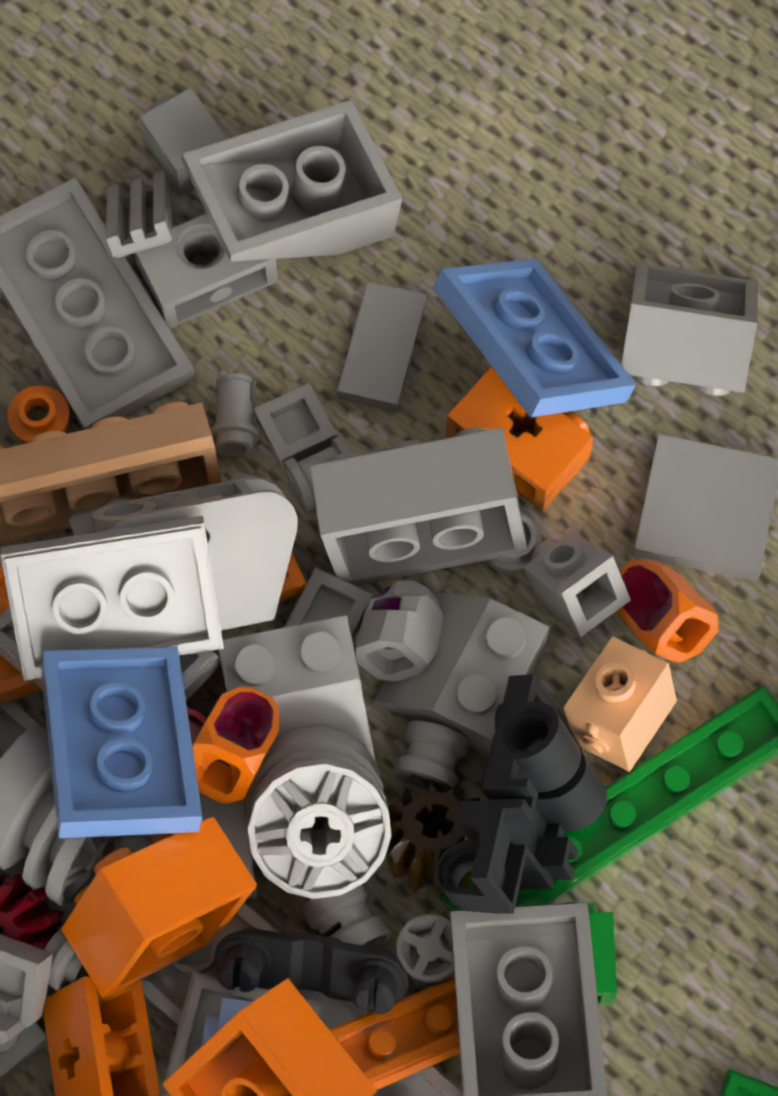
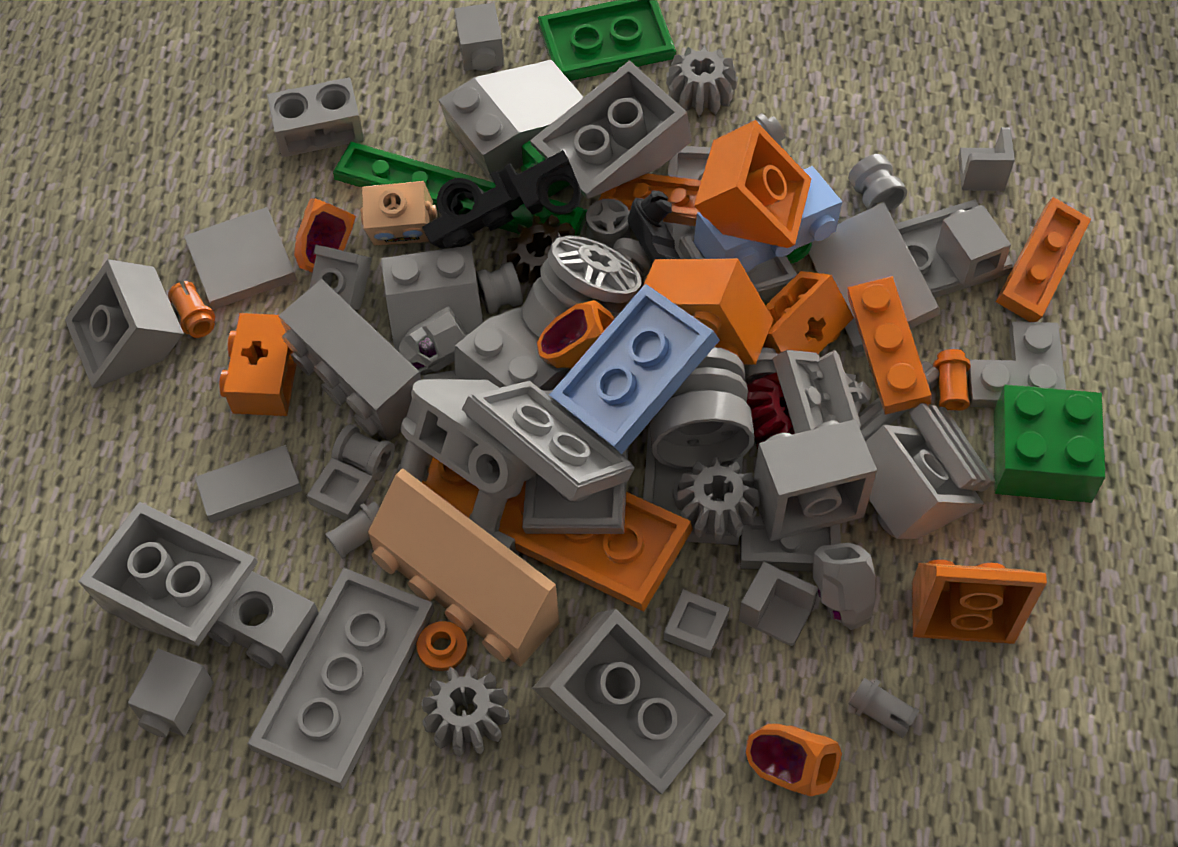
camera: 125 degrees left, 10 degrees down
(116, 220) = (228, 700): light grey tile -> none
(533, 337) = (191, 383): medium blue plate -> none
(659, 410) = (195, 317): none -> orange pin
(686, 959) = (505, 110): none -> light grey slope

